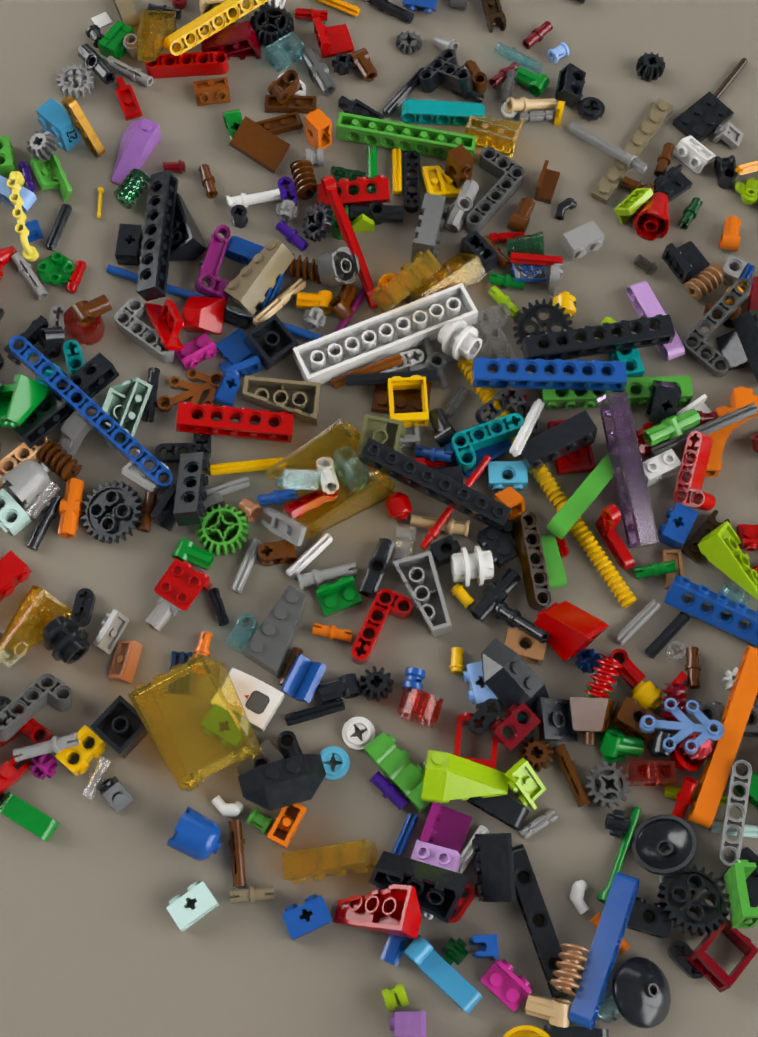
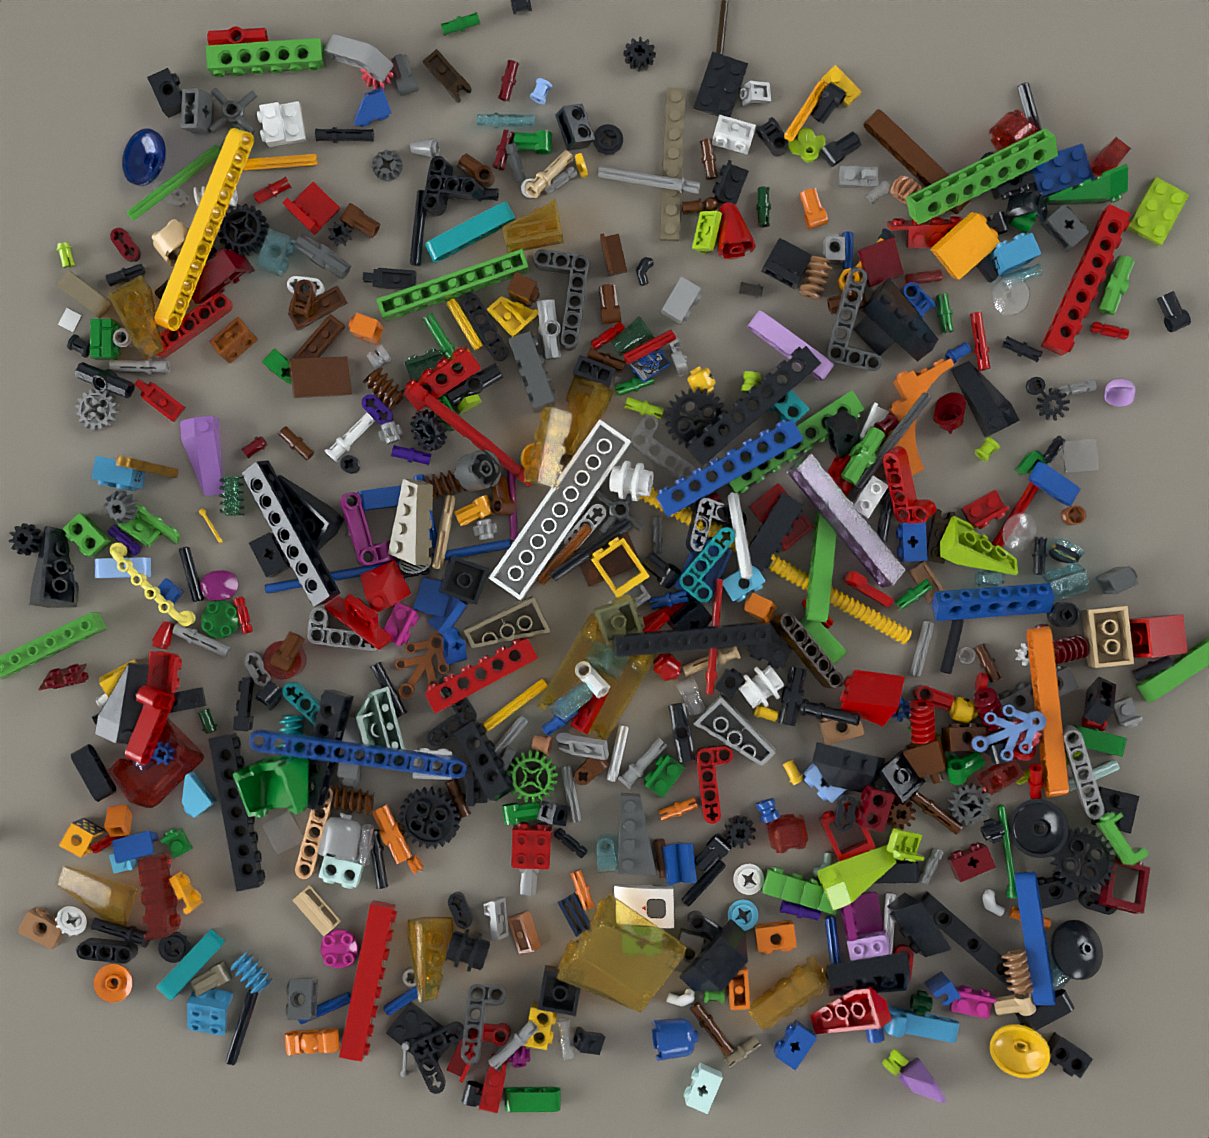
camera: 30 degrees left, 20 degrees up
(72, 544) = (415, 864): none -> orange bush
(74, 246) = (219, 585): none -> magenta hat
(221, 568) = (553, 813): none -> black brick
(343, 789) = (764, 932): none -> orange brick
(568, 844) = (981, 862): none -> dark red brick
(661, 497) = (884, 534): none -> black pin

